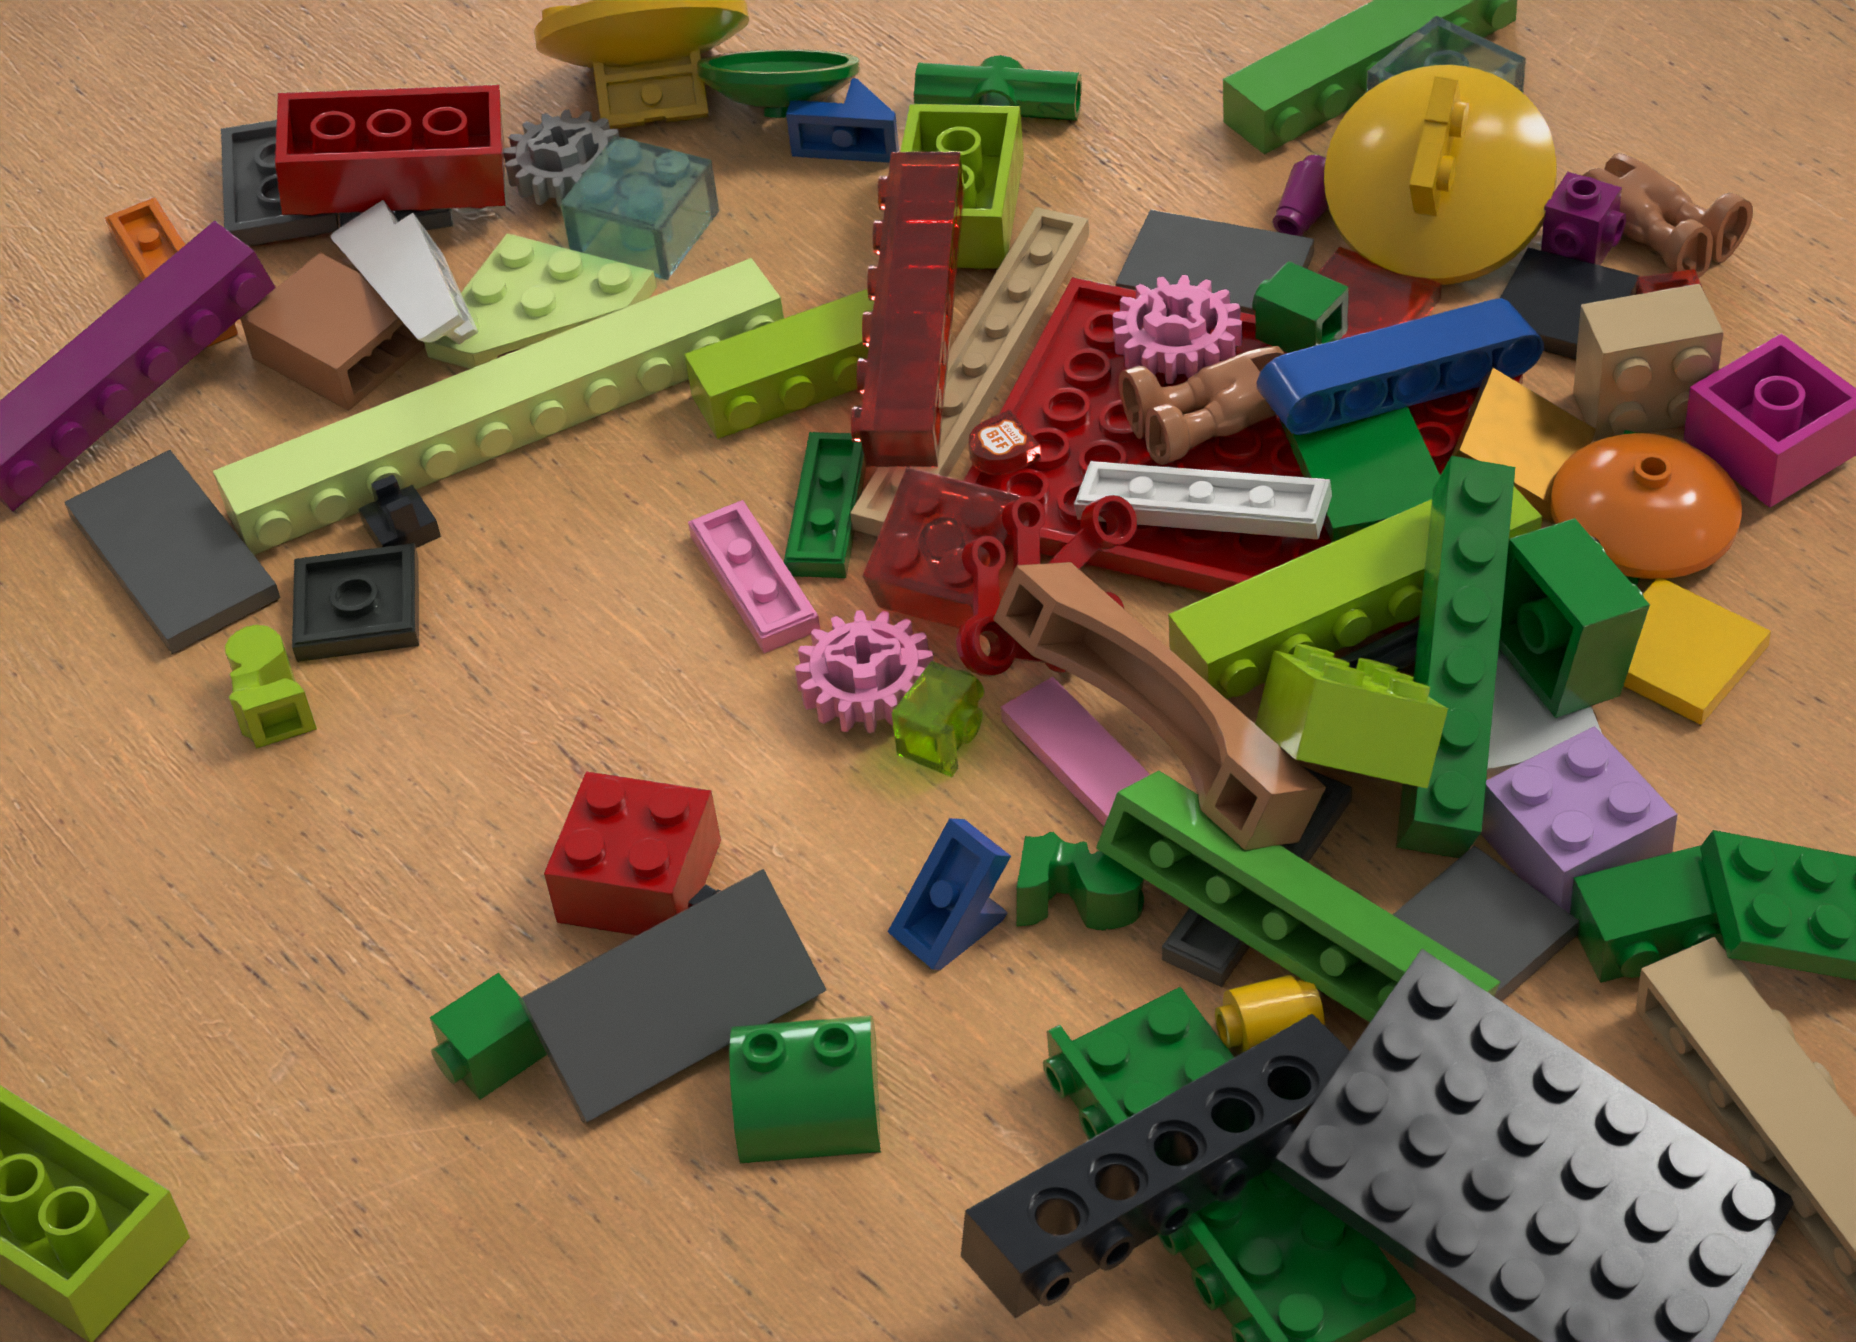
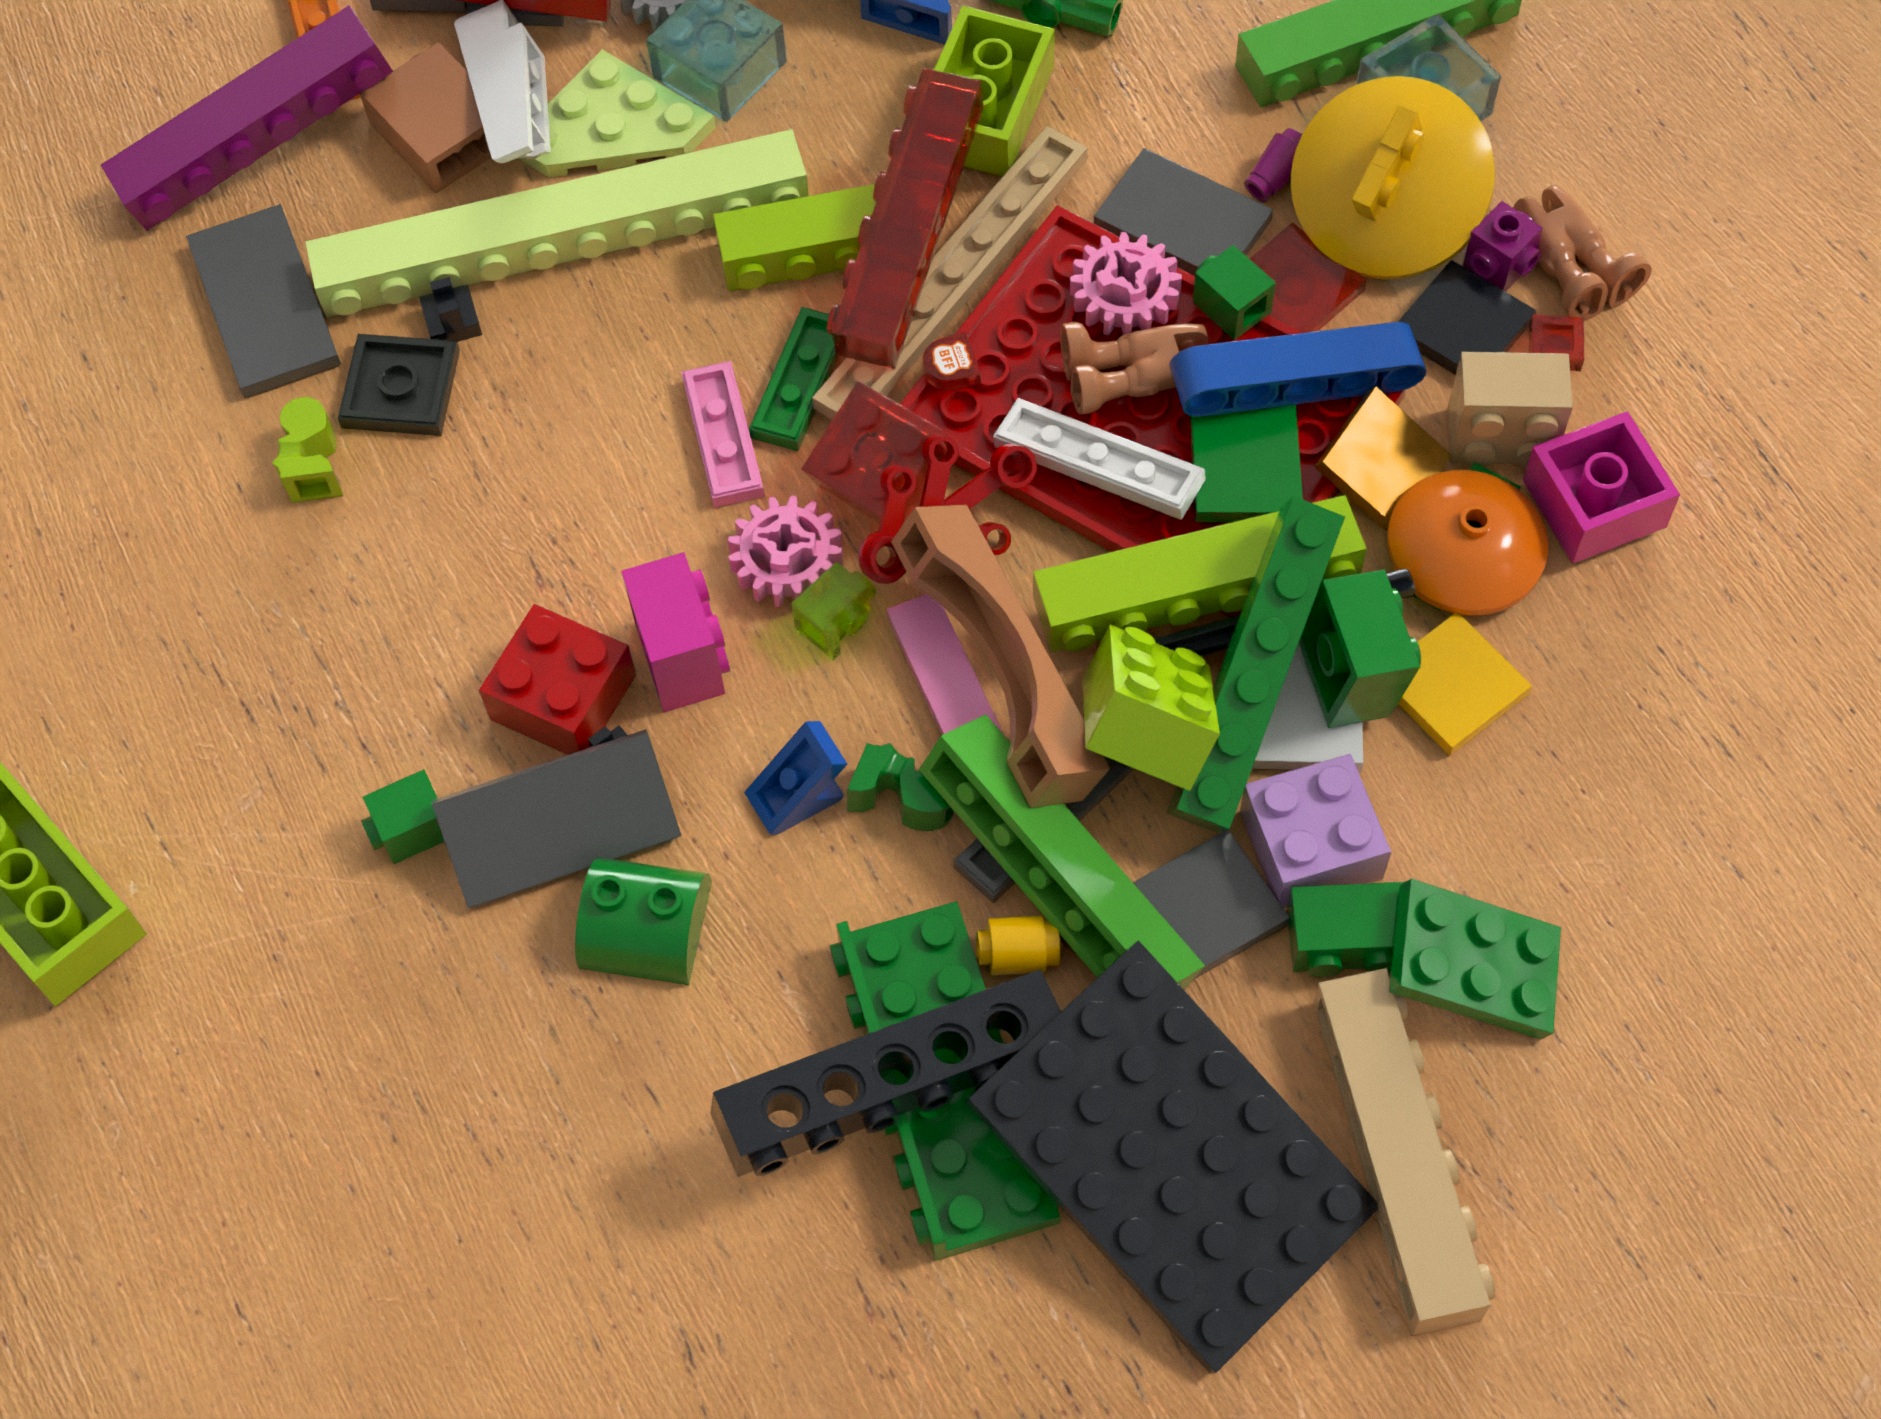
camera: 10 degrees right, 15 degrees up
(763, 769) = (677, 631): none -> dark pink brick

